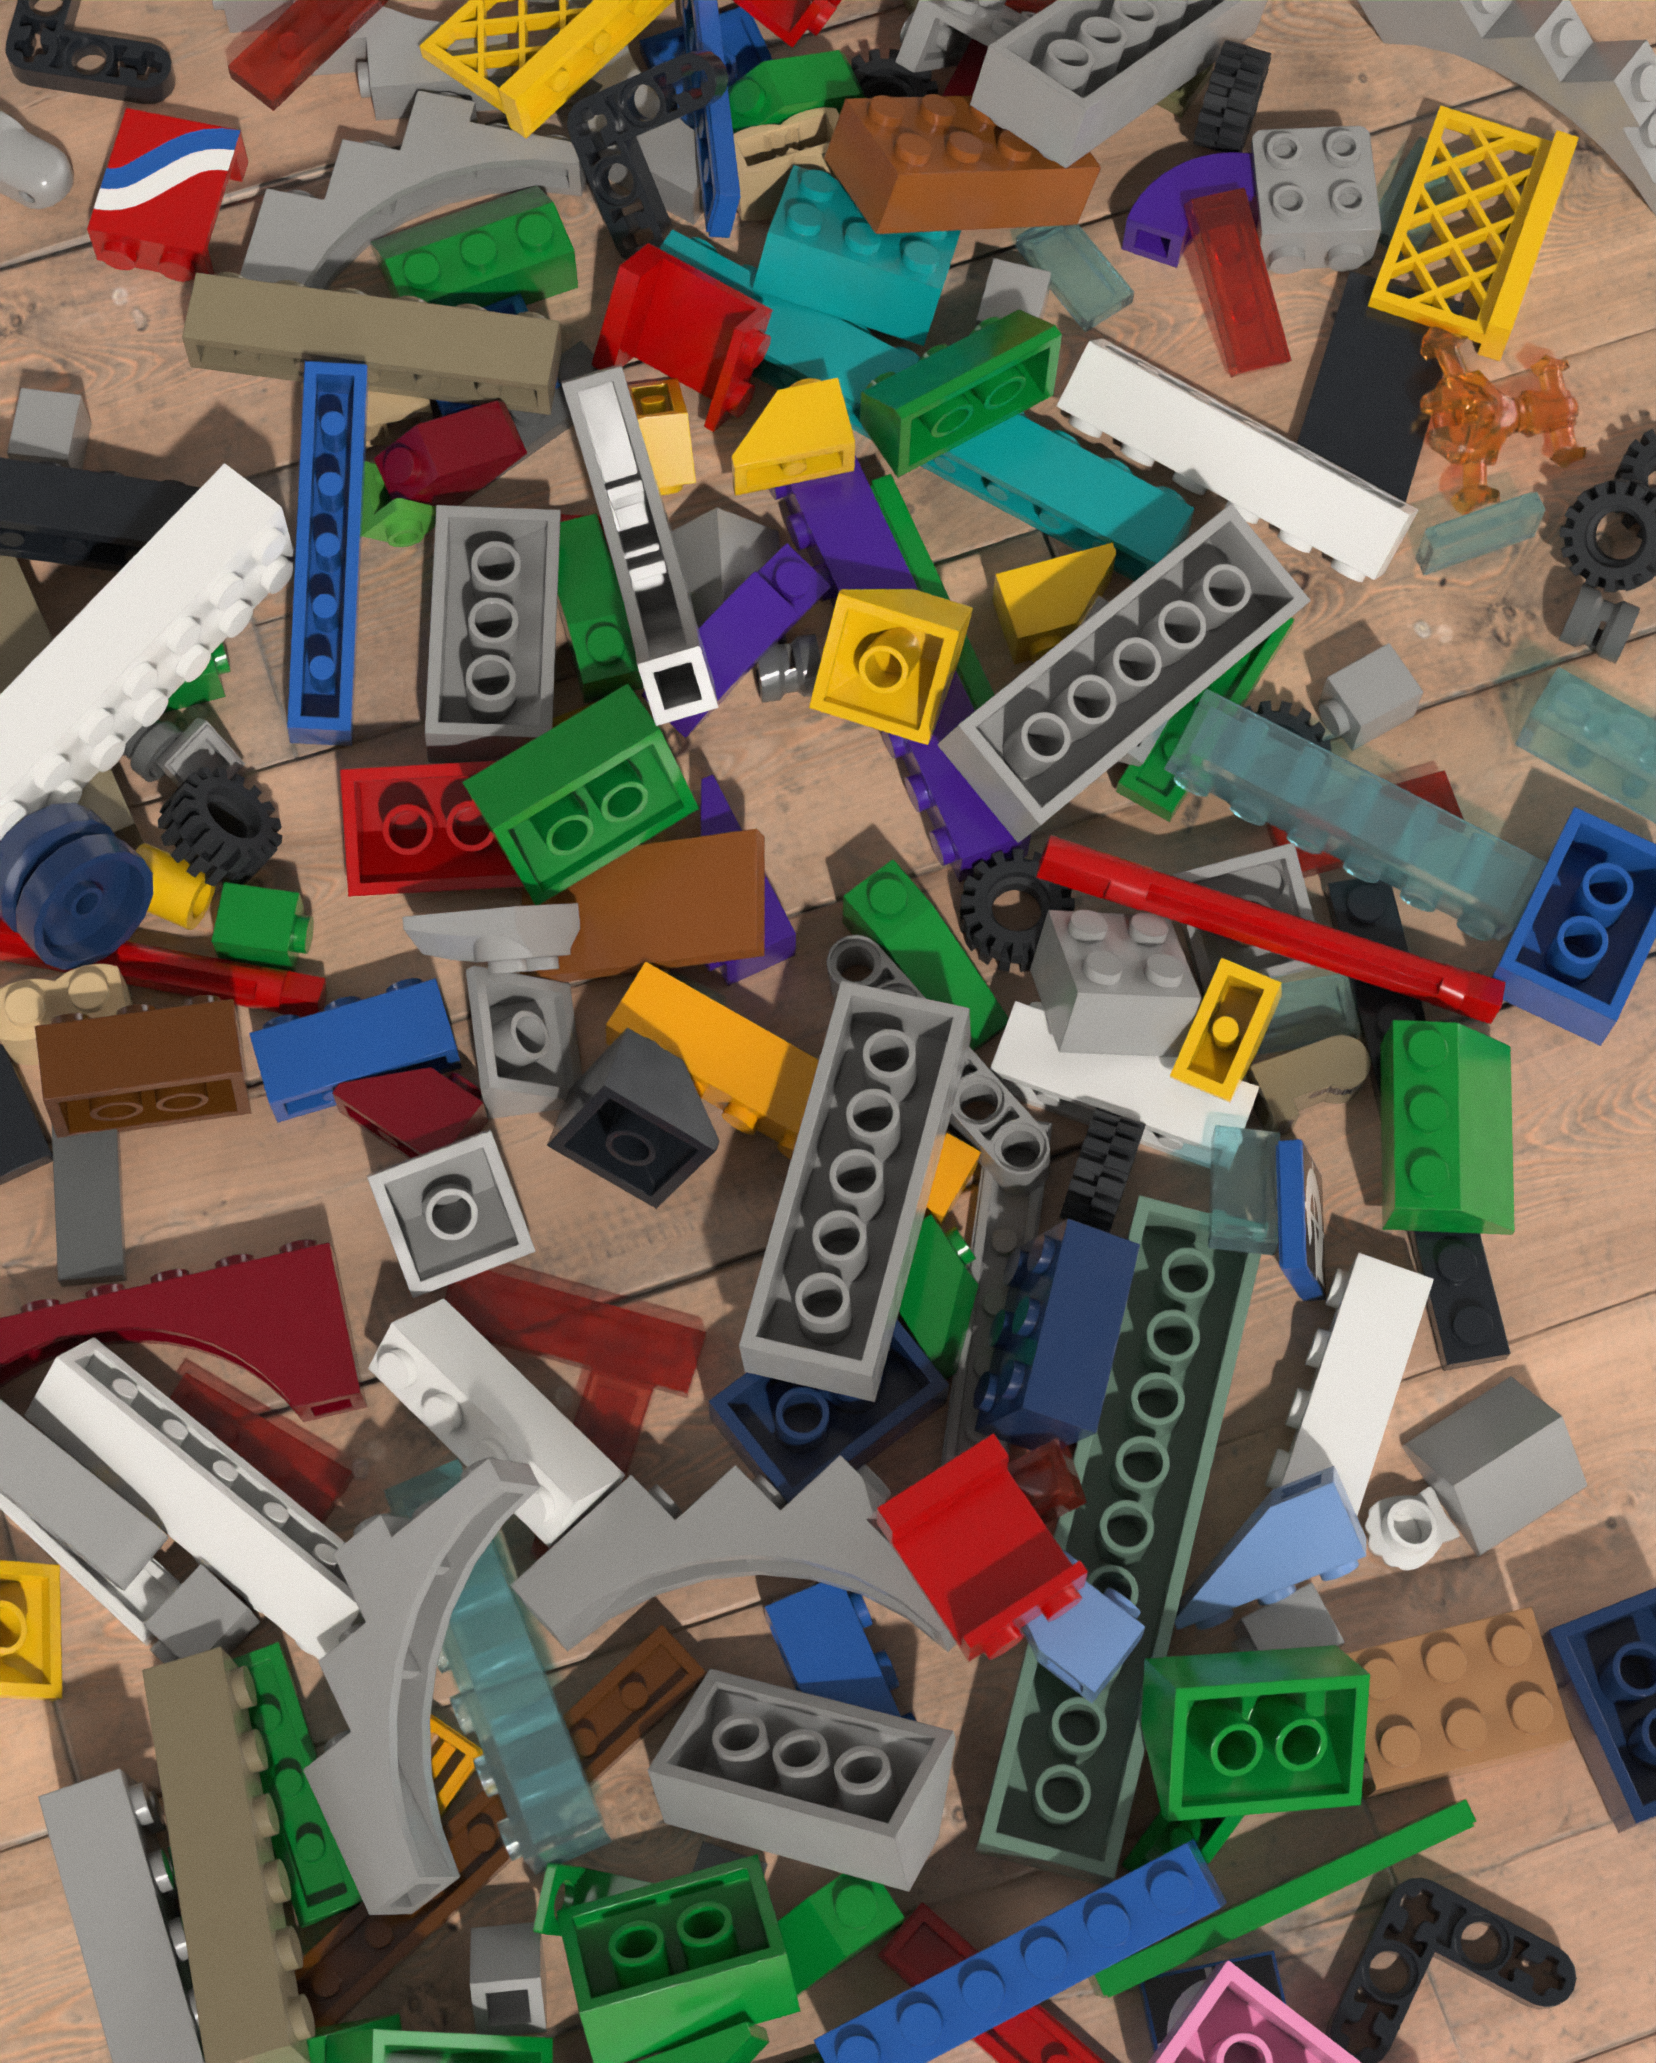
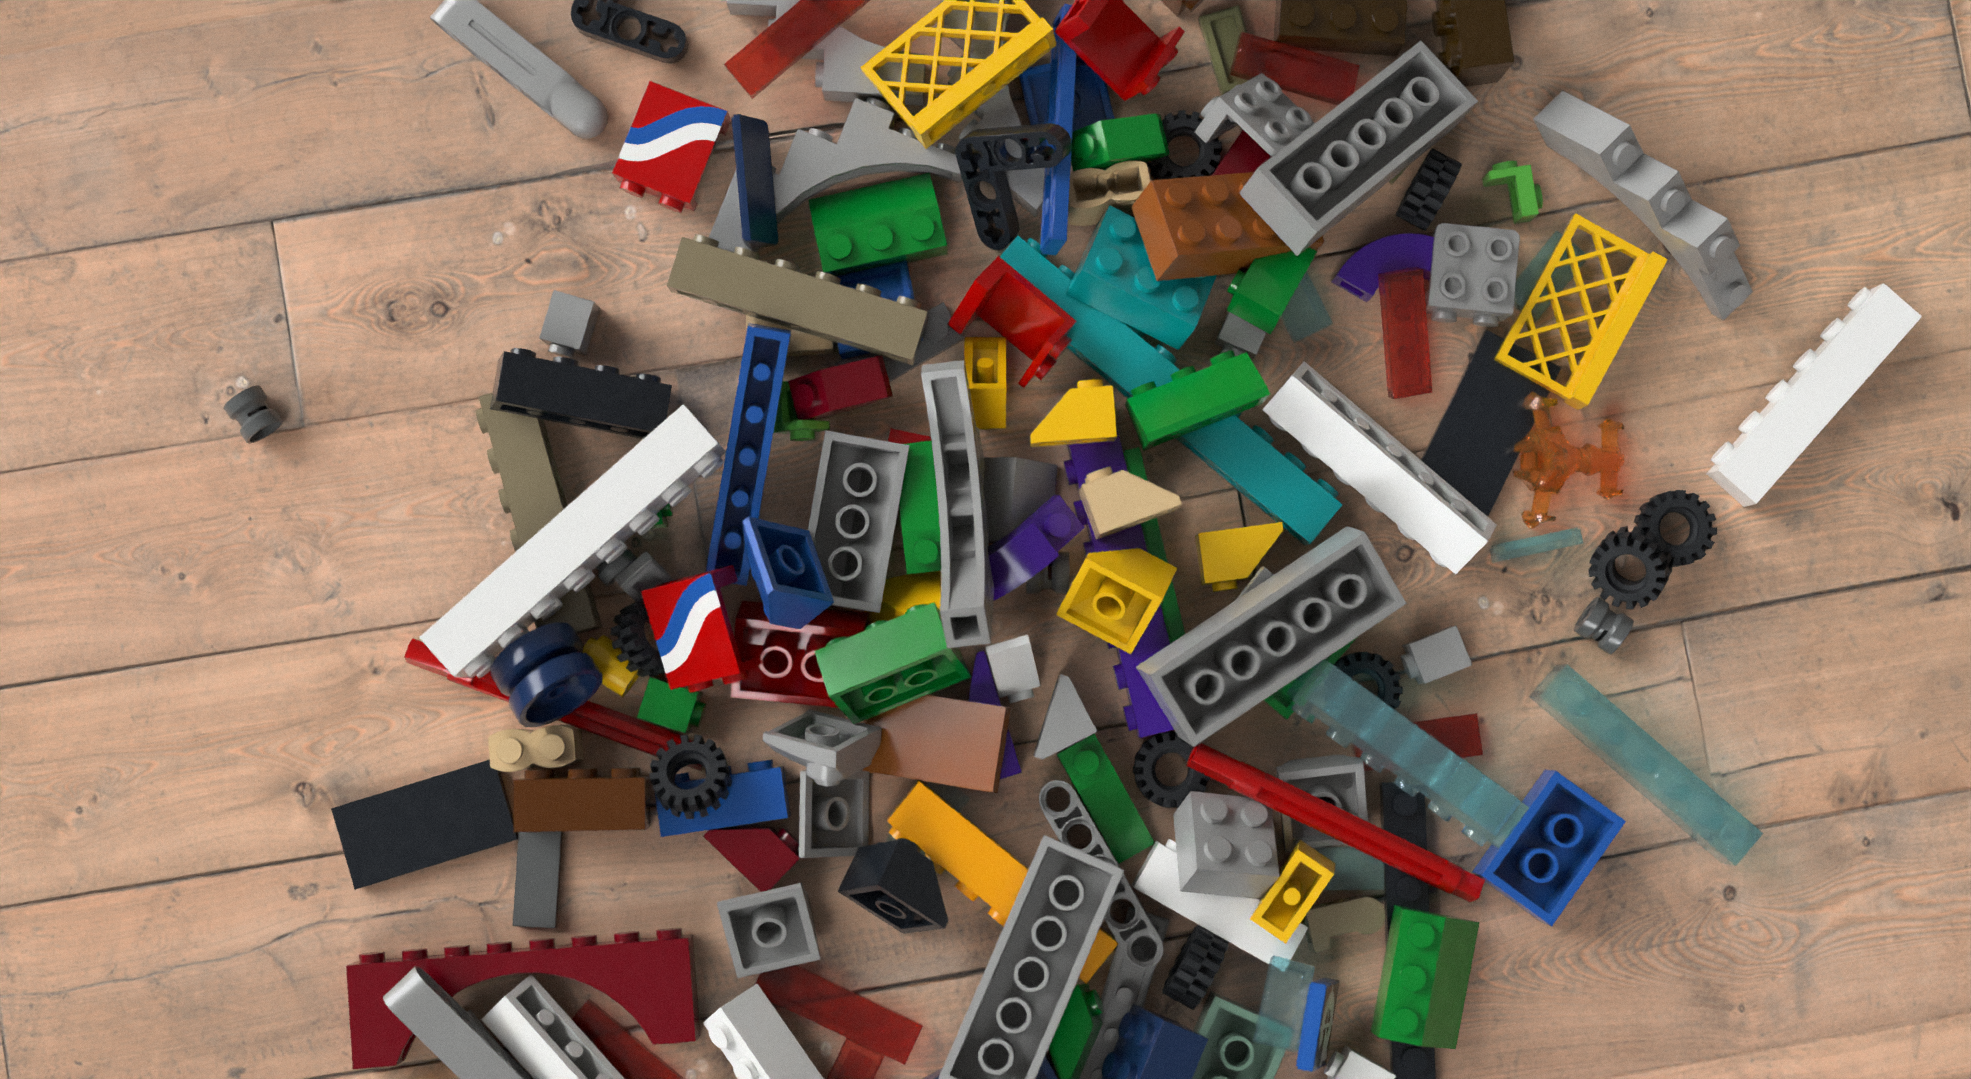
camera: 10 degrees right, 15 degrees up
(286, 791) = (696, 631): none -> panel
(291, 202) = (755, 181): none -> dark blue slope
(310, 1025) = (684, 754): none -> black tyre
(402, 685) = (786, 572): none -> blue slope
(758, 774) = (1013, 668): none -> white slope
(848, 850) = (1064, 721): none -> light grey slope
(884, 523) = (1123, 501): none -> tan slope
(1035, 236) = (1268, 287): none -> green slope
(1356, 83) = (1523, 193): none -> bright green bracket

